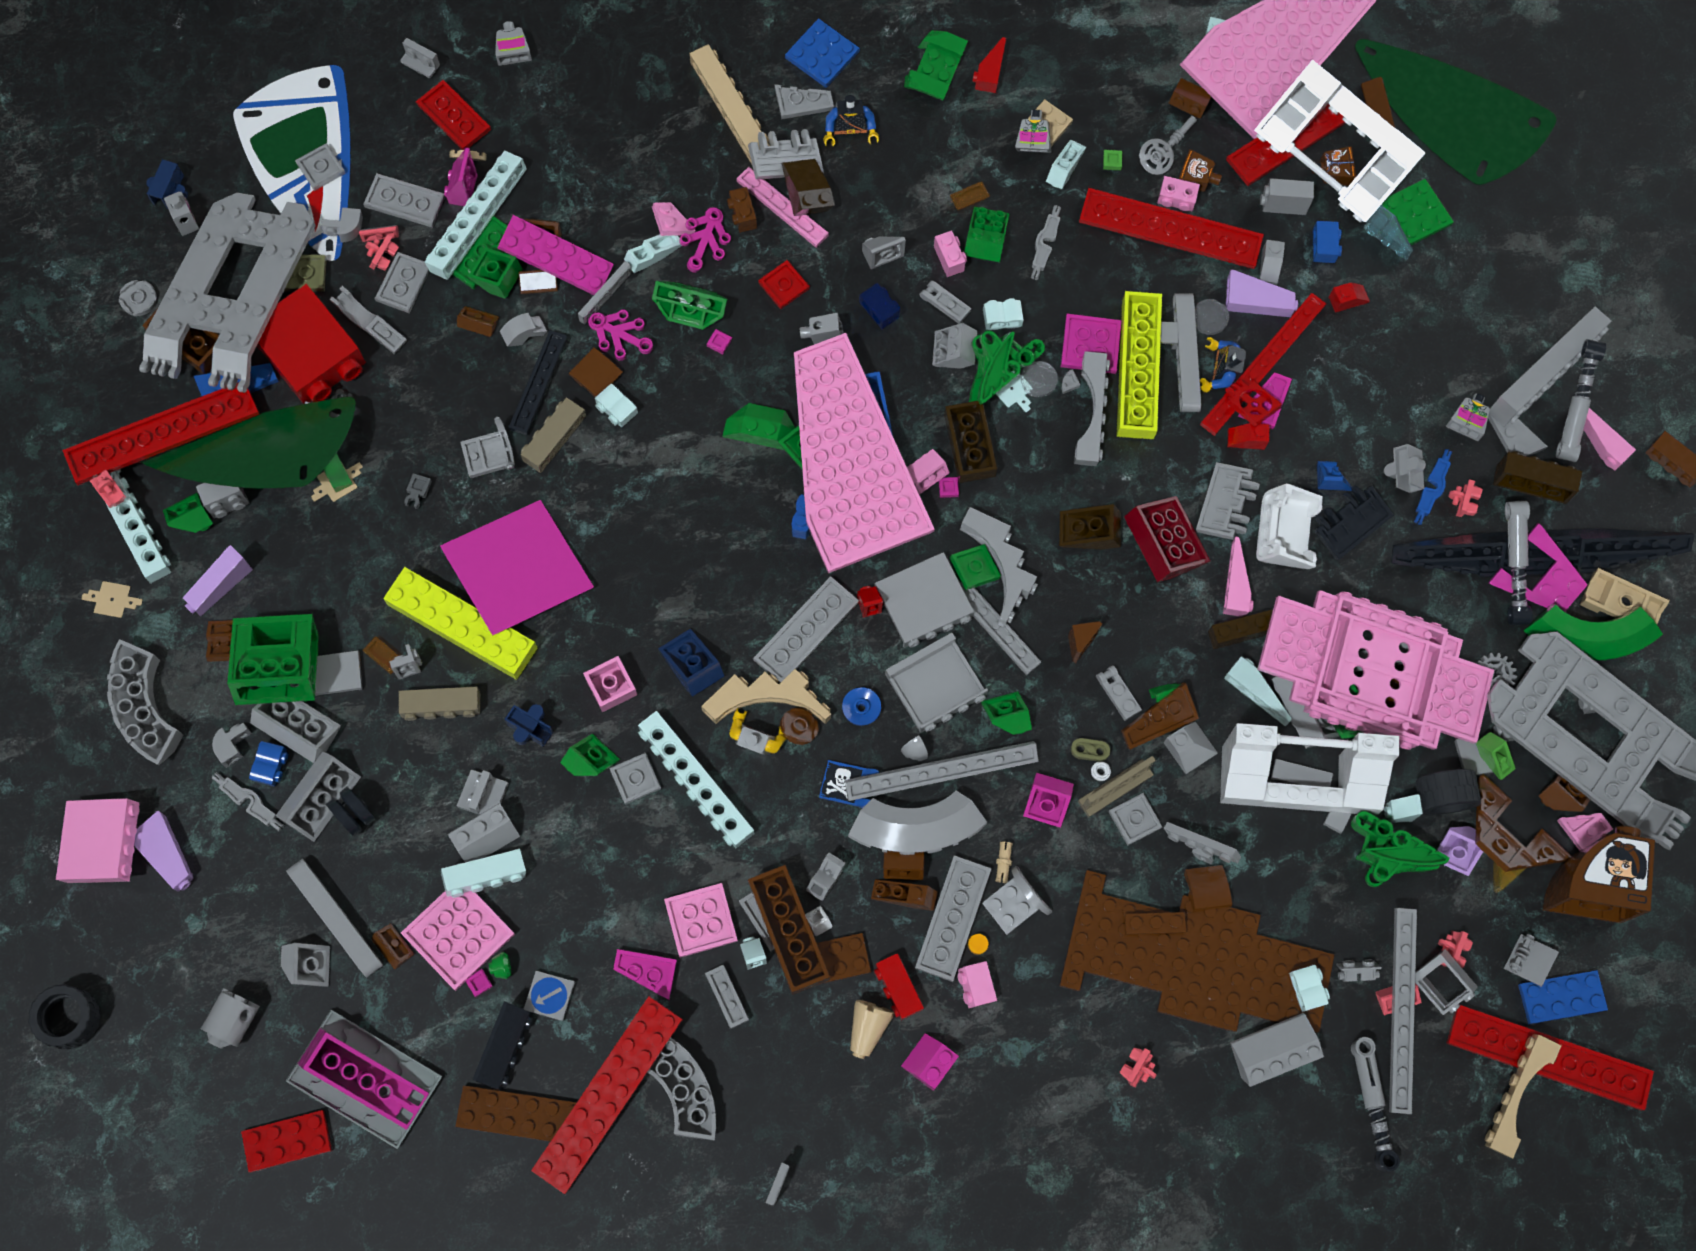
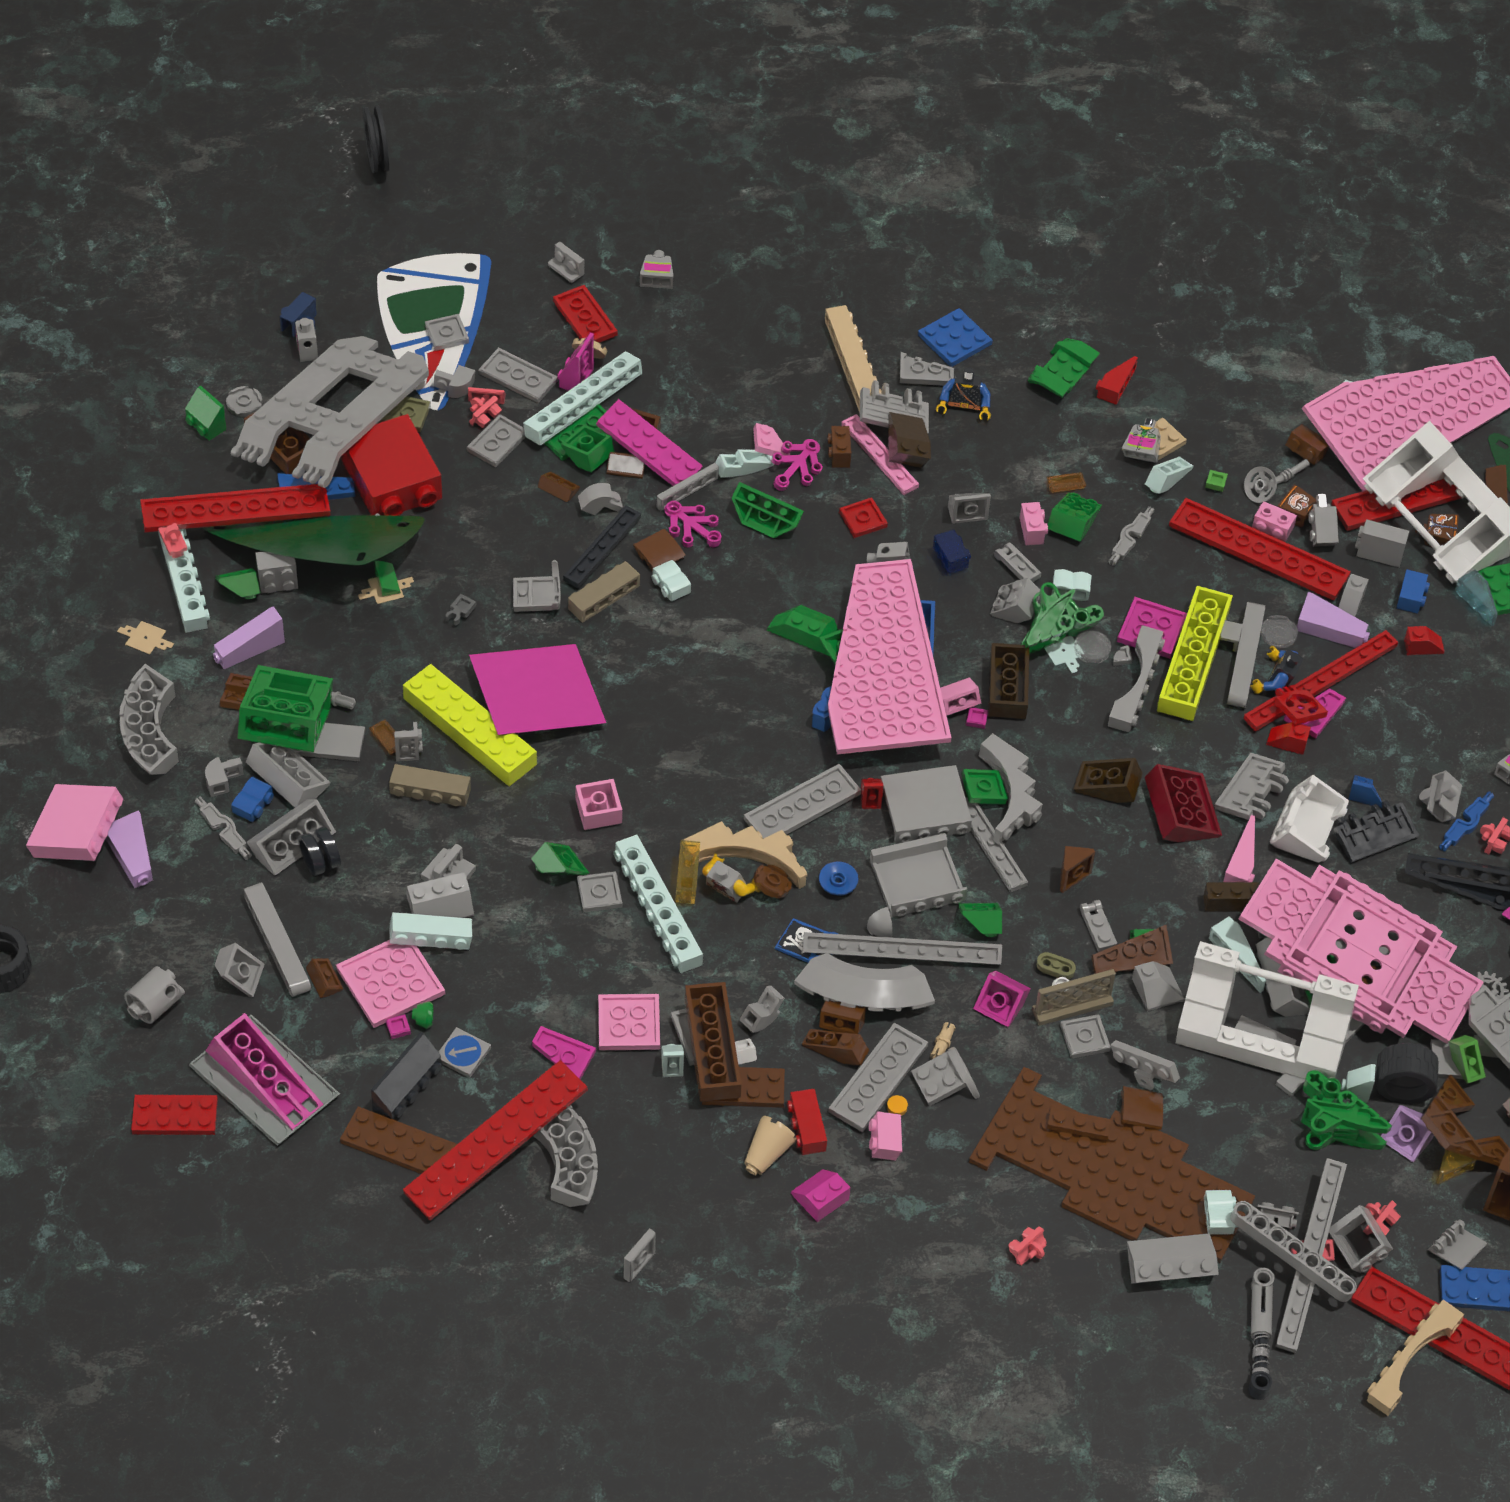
camera: 15 degrees right, 20 degrees down
(102, 327) = (205, 414): none -> green slope
(330, 626) = (342, 700): none -> light grey axle
(369, 322) = (459, 468): light grey piece -> none
(528, 725) = (510, 821): dark blue piece -> none
(691, 662) = (683, 806): dark blue slope -> none
(716, 739) = (687, 872): none -> clear yellow slope
(719, 341) = (786, 551): dark pink tile -> none
(726, 996) = (635, 1091): light grey plate -> none
(1227, 187) = (1324, 523): none -> light grey hinge
(1398, 1019) = (1298, 1260): none -> light grey beam

